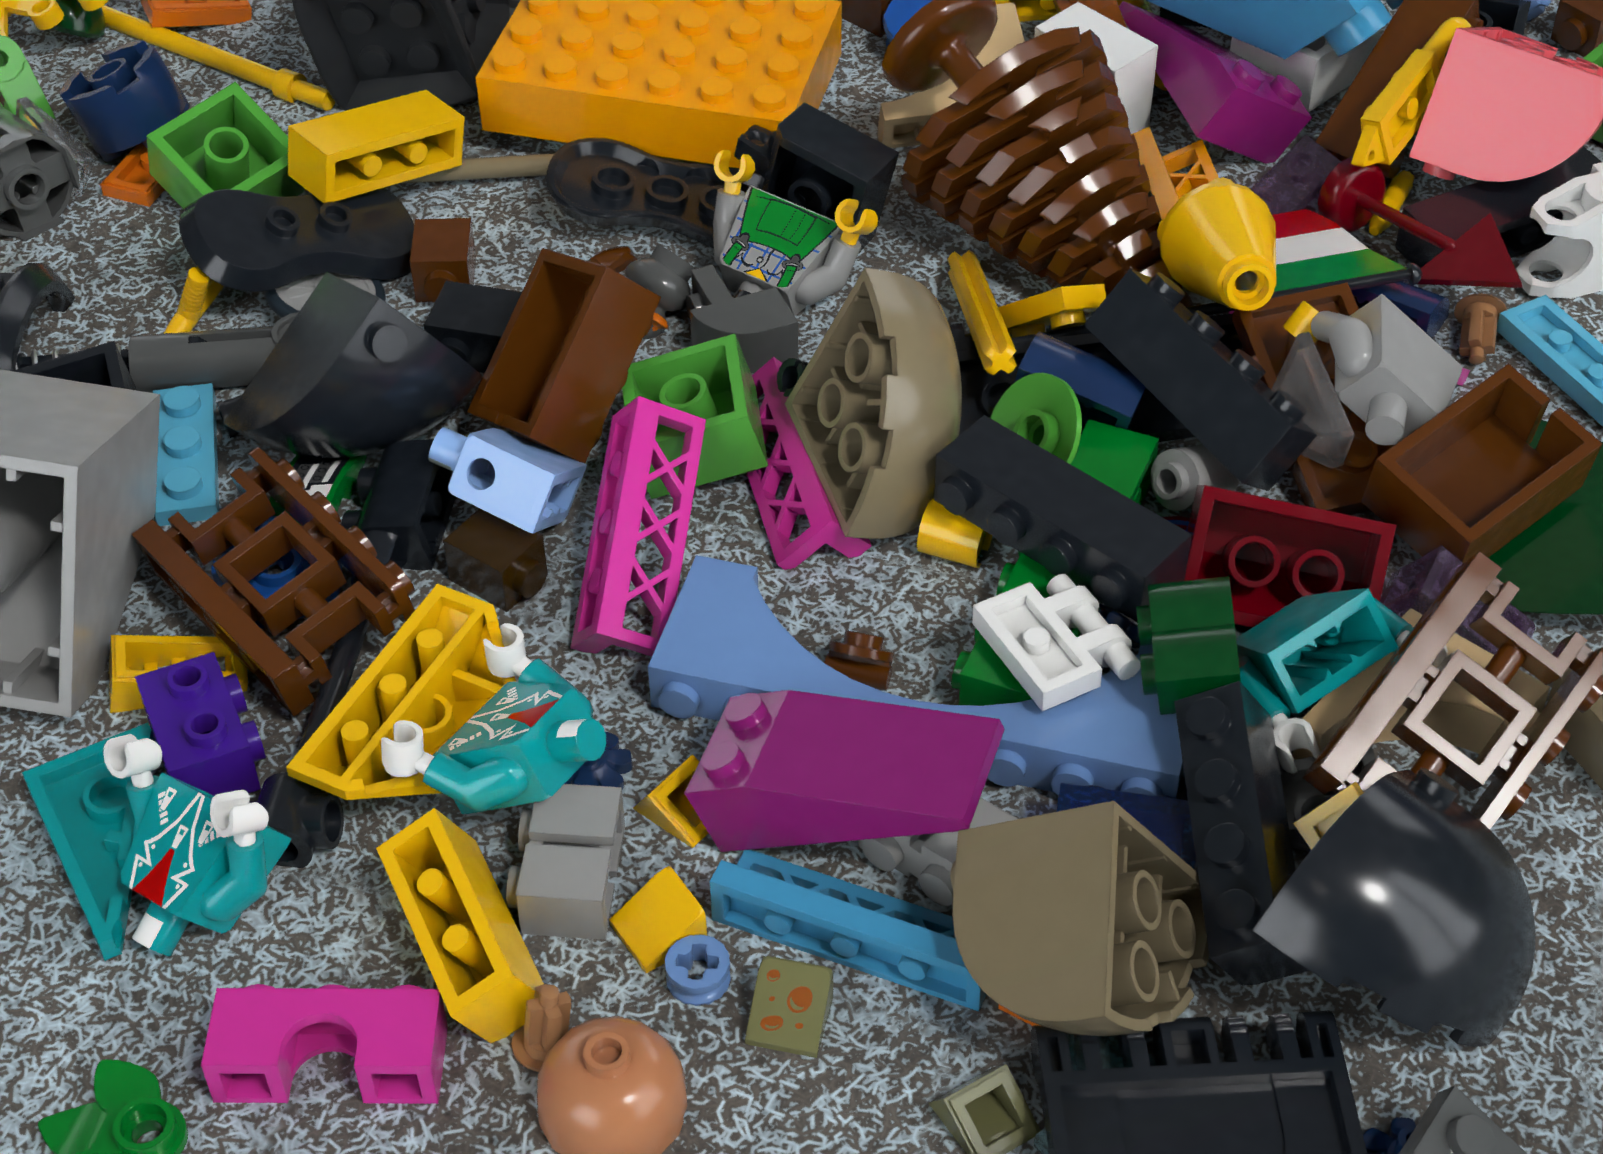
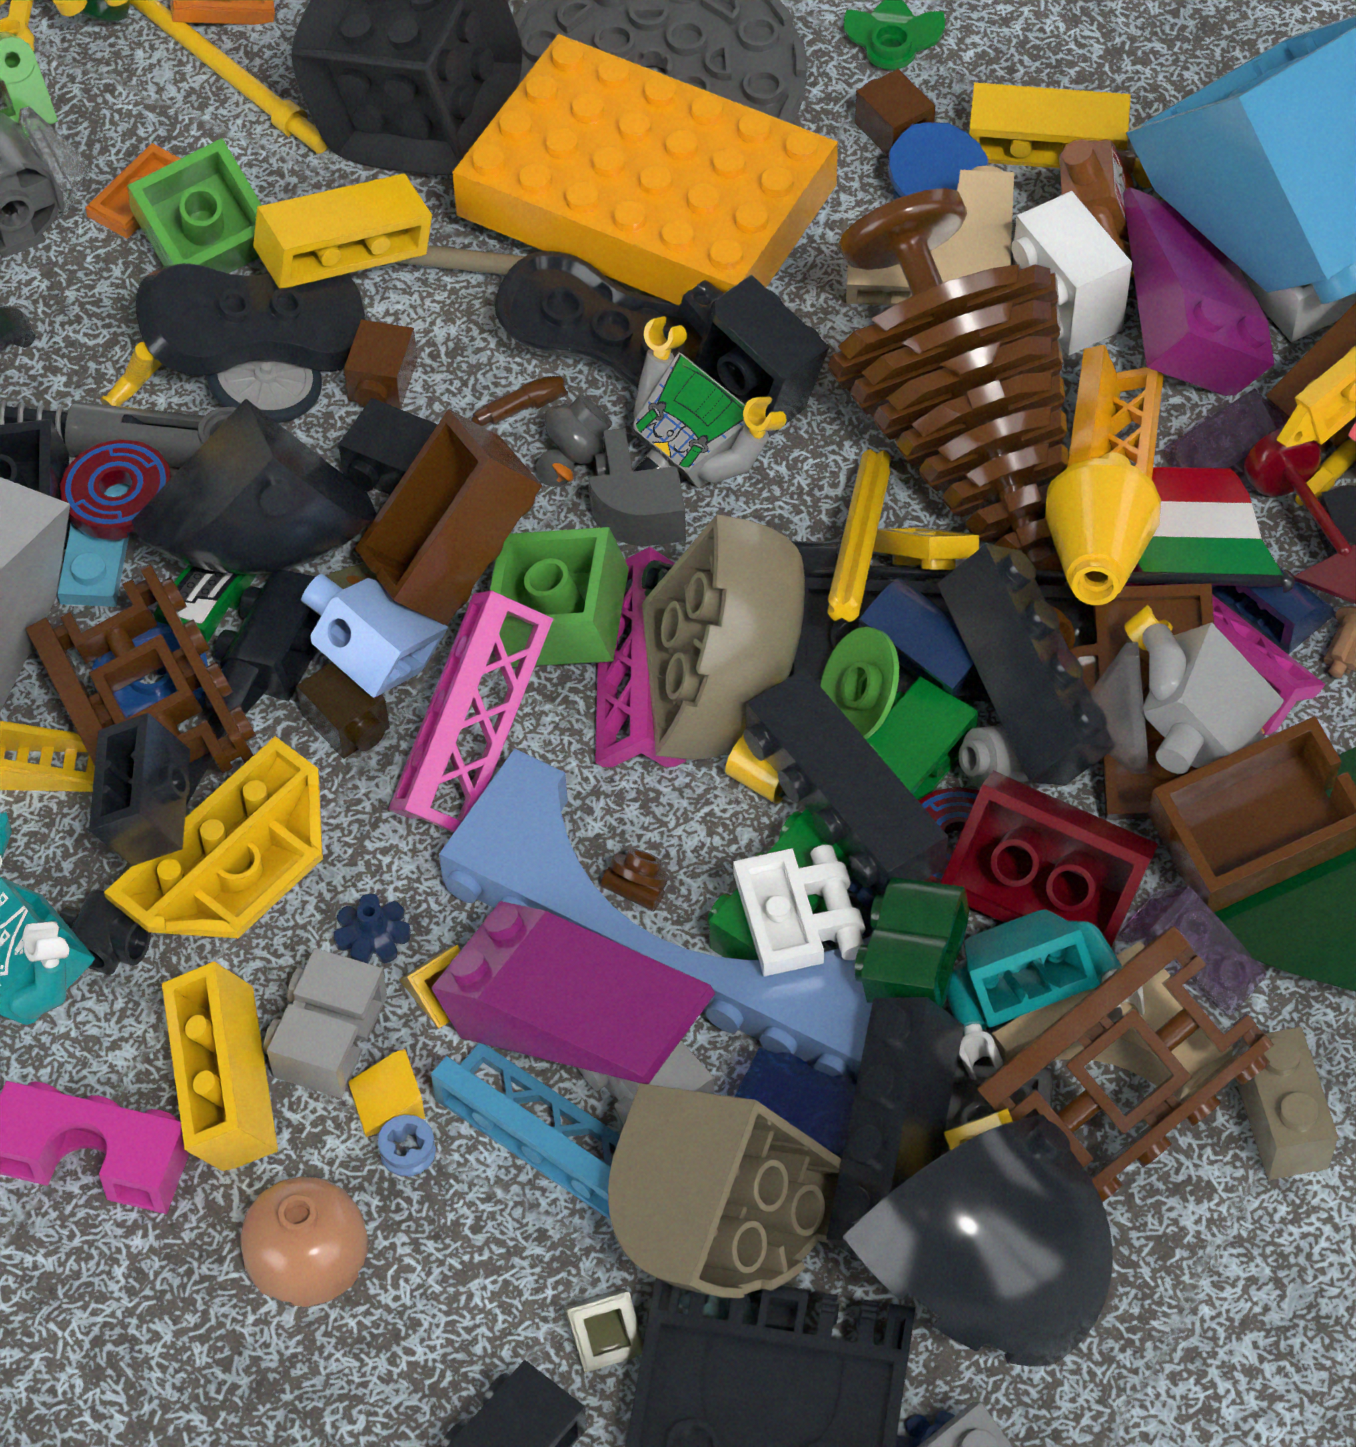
camera: 15 degrees right, 10 degrees up
(124, 98) = (123, 121): dark blue brick -> none
(195, 380) = (106, 466): none -> dark red tile
(199, 727) = (46, 830): dark purple brick -> none
(306, 649) = (140, 789): none -> black brick
(514, 746) = (300, 911): teal torso -> none
(545, 1024) = (264, 1169): medium nougat piece -> none
(790, 1006) = (472, 1197): olive slope -> none

